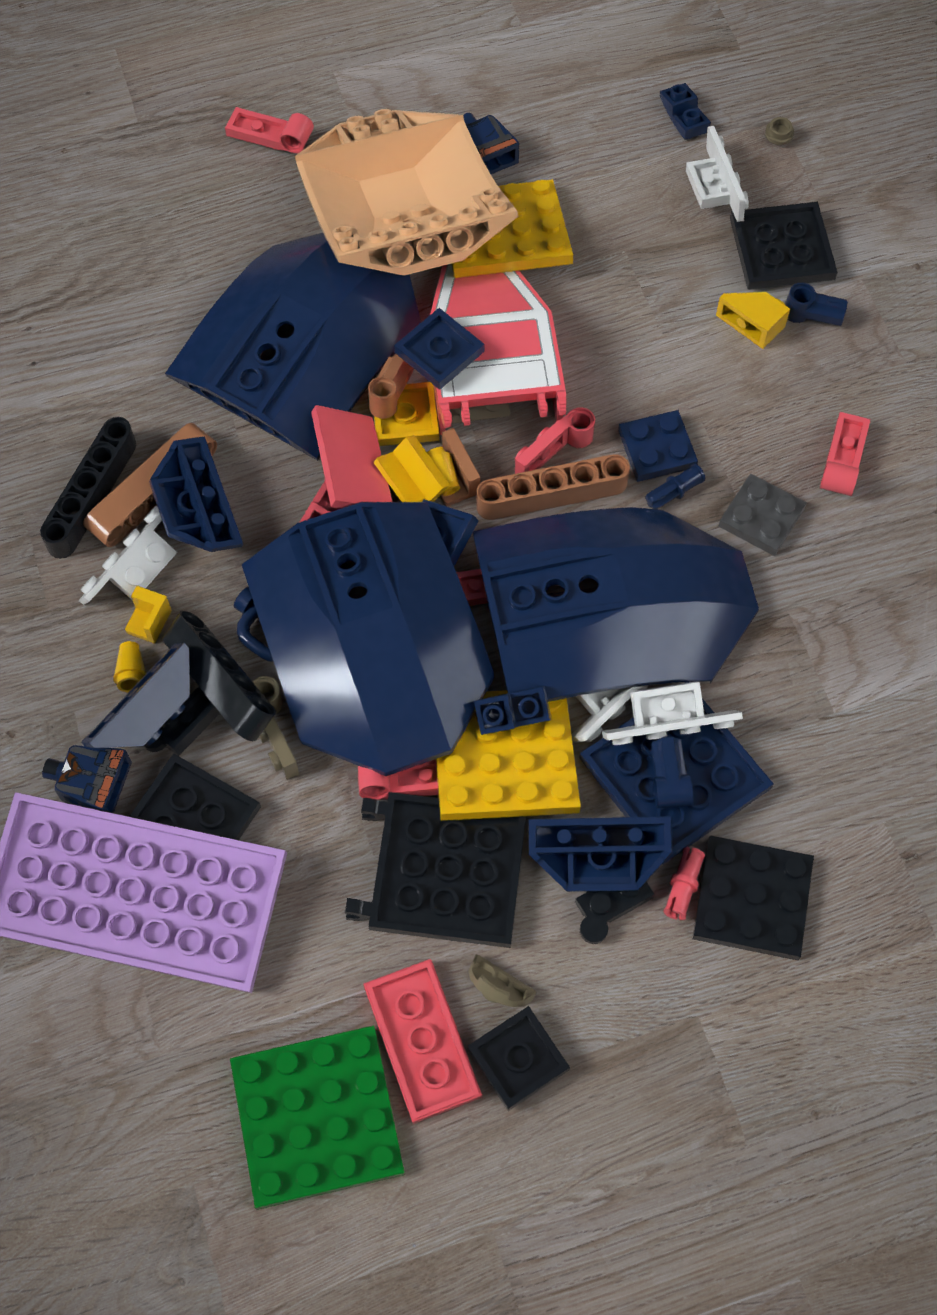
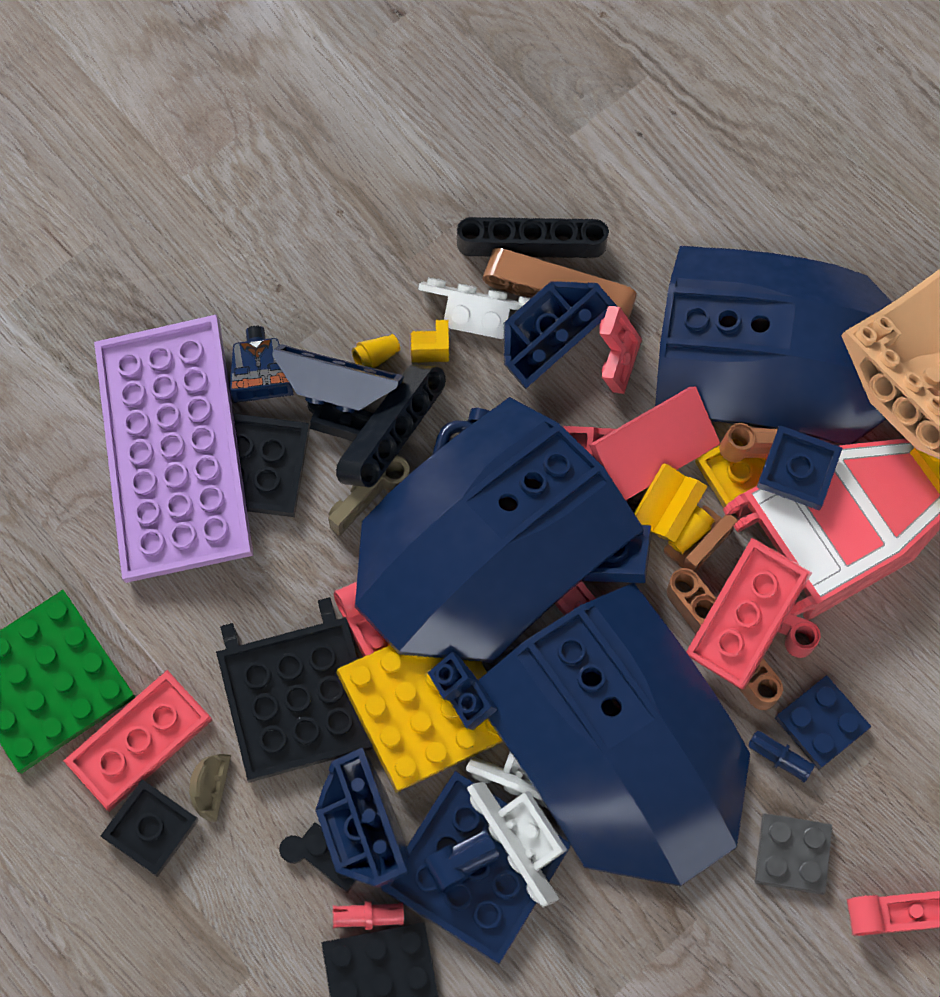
camera: 65 degrees right, 5 degrees up
(237, 454) = (624, 346): none -> coral plate
(548, 446) = (748, 613): none -> coral tile

